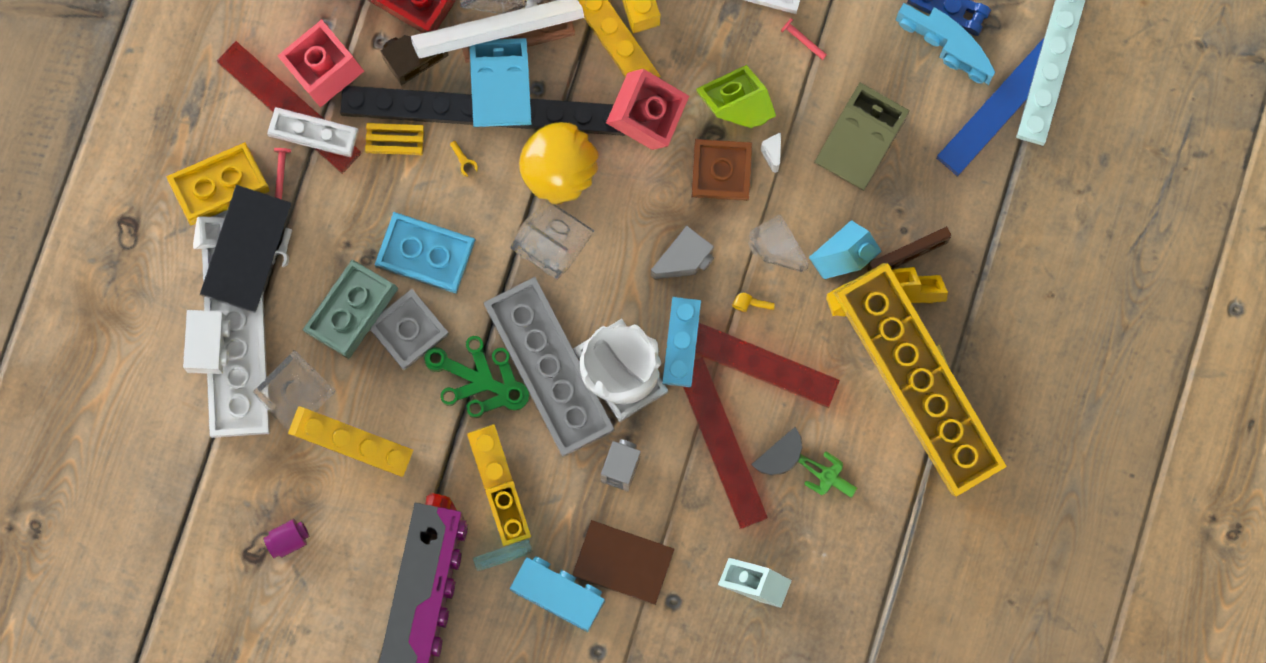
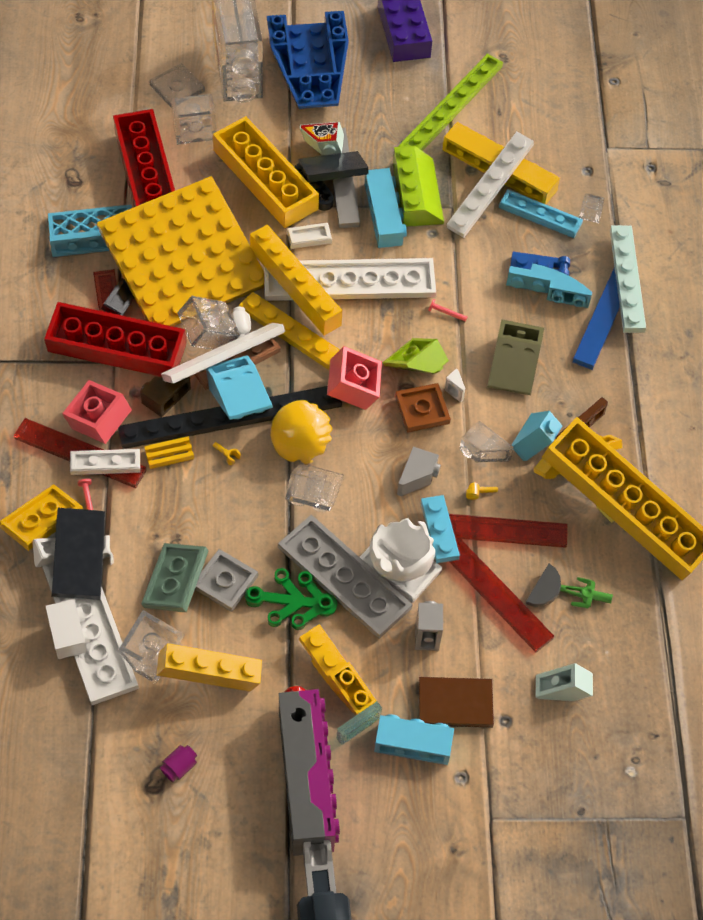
camera: 20 degrees left, 20 degrees down
(425, 252) = (219, 524): medium azure tile -> none

